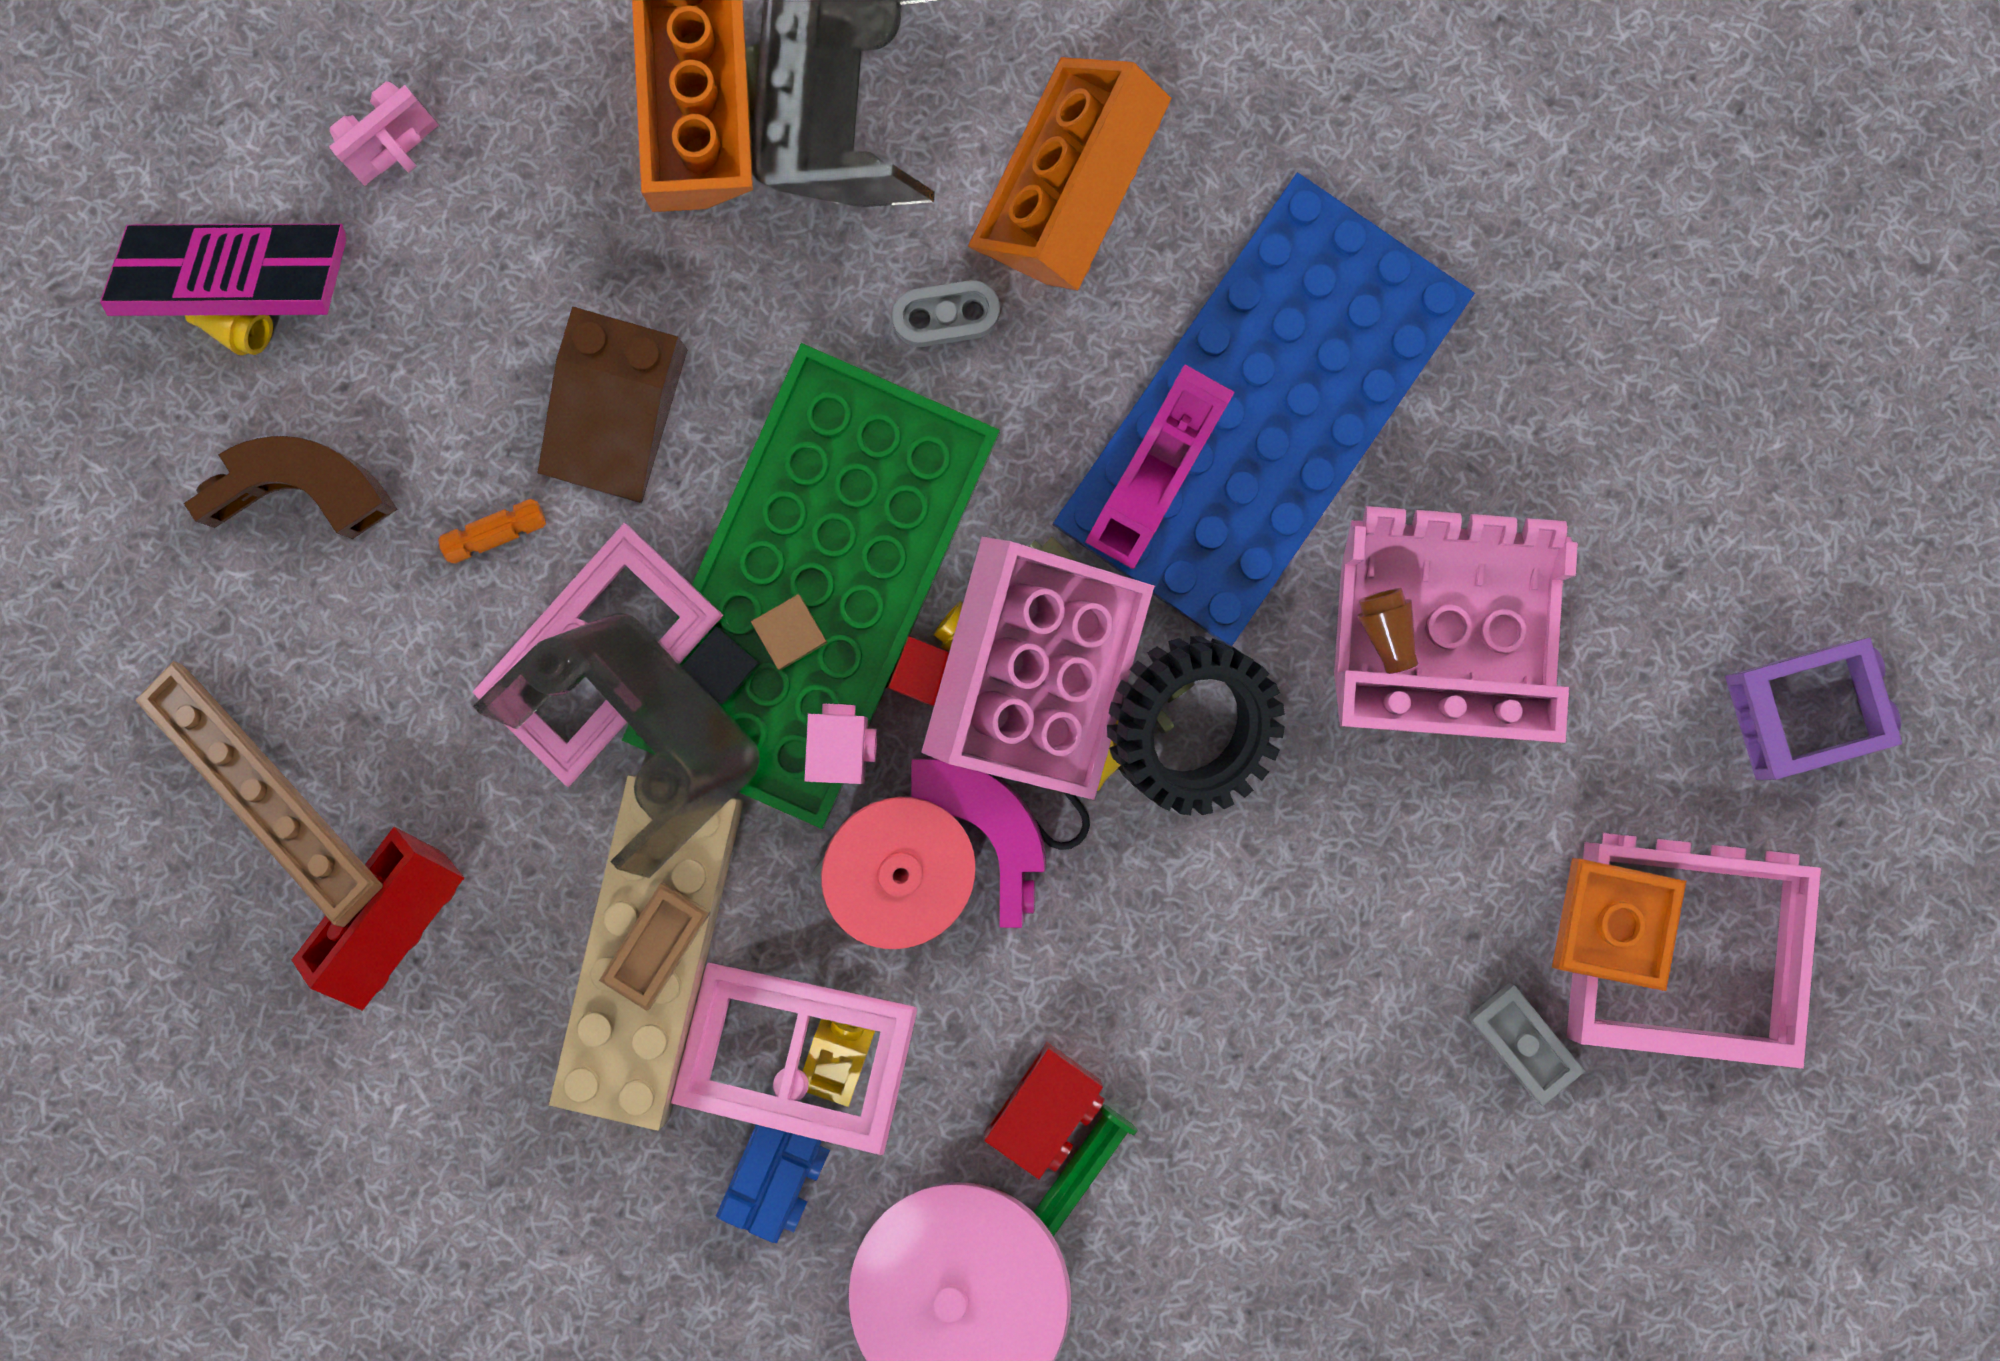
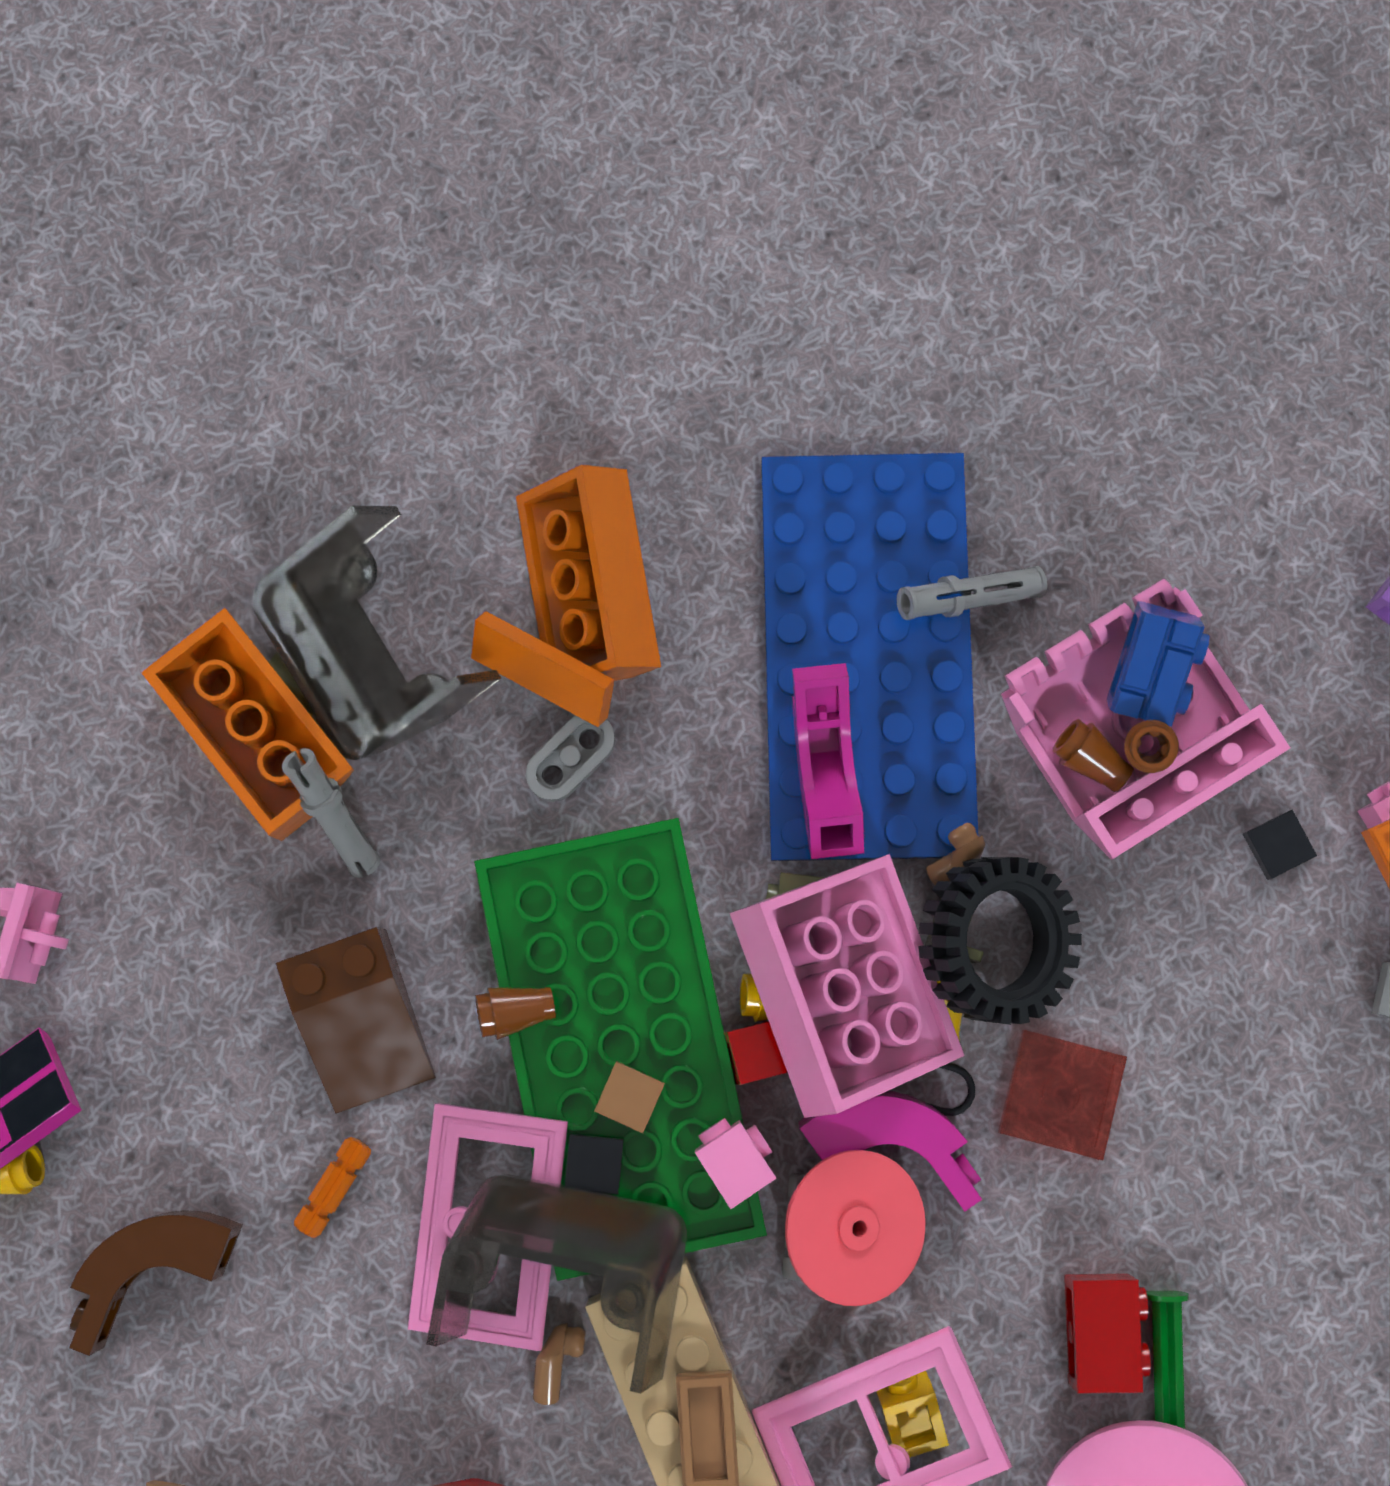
camera: 30 degrees left, 5 degrees down
(570, 801) = (549, 1362): none -> medium nougat arm
(707, 195) = (323, 800): none -> light grey pin
(743, 489) = (513, 1009): none -> dark orange cone
(974, 219) = (542, 668): none -> orange tile
(1154, 894) = (1062, 1094): none -> clear red tile
(1226, 627) = (967, 846): none -> medium nougat arm
(1342, 392) = (923, 601): none -> light grey pin
(1455, 666) = (1161, 754): none -> dark orange cone
(1496, 821) = (1279, 844): none -> black tile
(1504, 588) = (1157, 664): none -> blue brick

